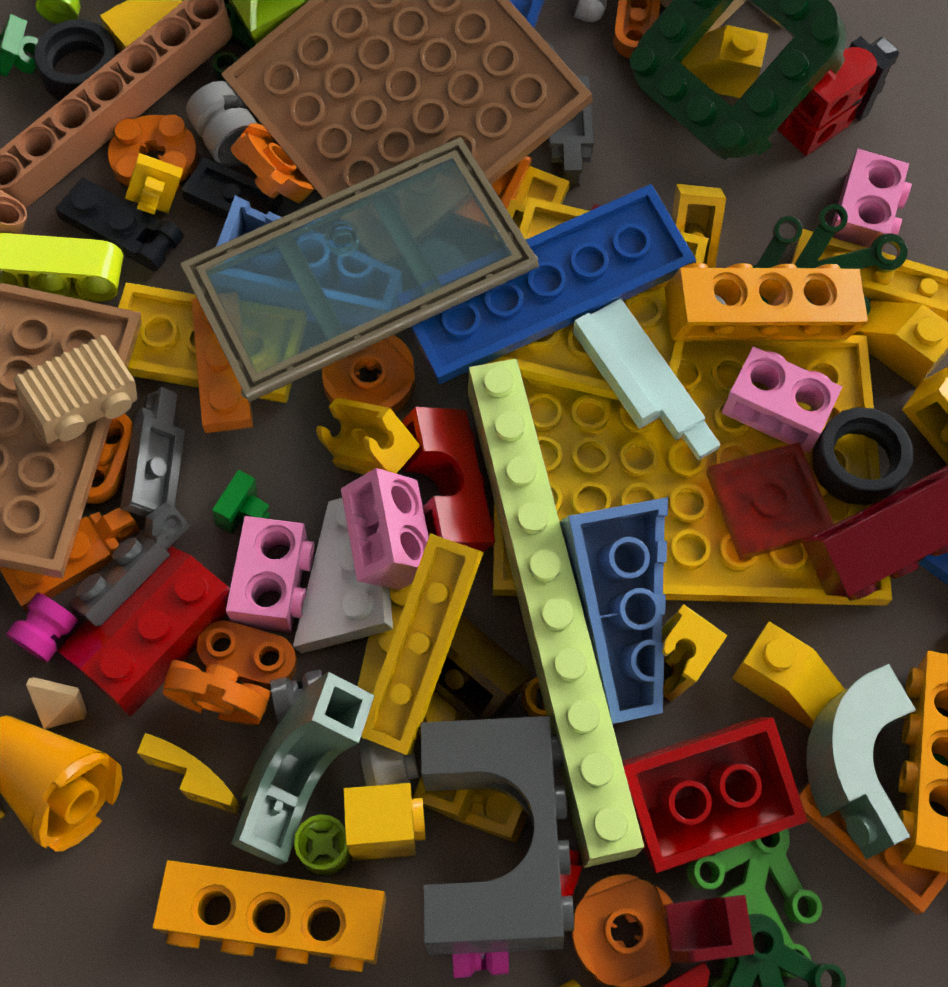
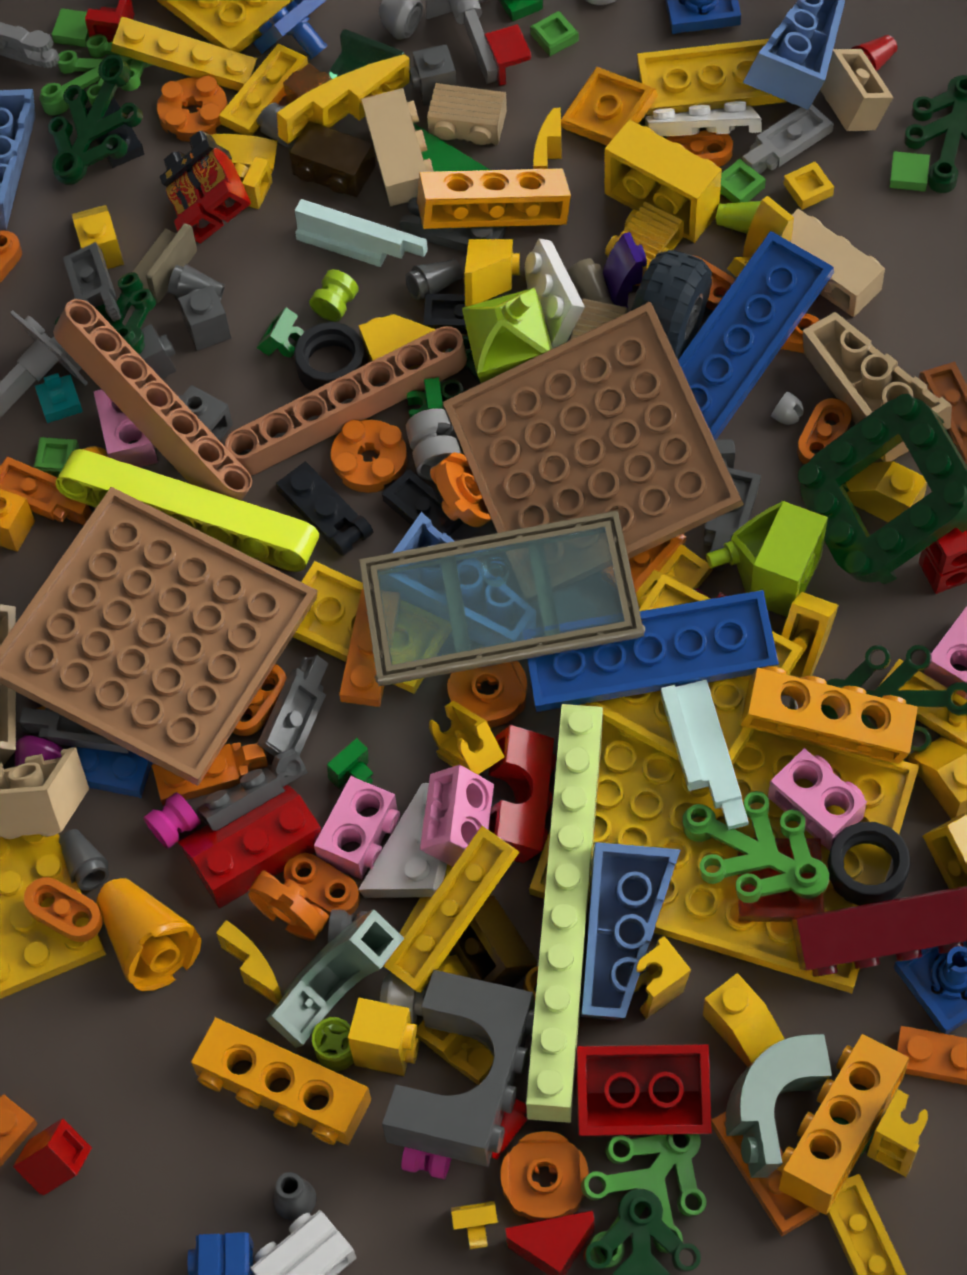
camera: 25 degrees right, 5 degrees down
(56, 702) = (167, 880): tan slope -> none
(76, 390) = (249, 642): tan brick -> none
(153, 184) = (360, 483): yellow tile -> none
(205, 73) = (430, 400): none -> green tile
(638, 144) = (776, 553): none -> lime piece
(708, 929) = (600, 1185): dark red panel -> none
(743, 476) = (758, 853): none -> bright green plant

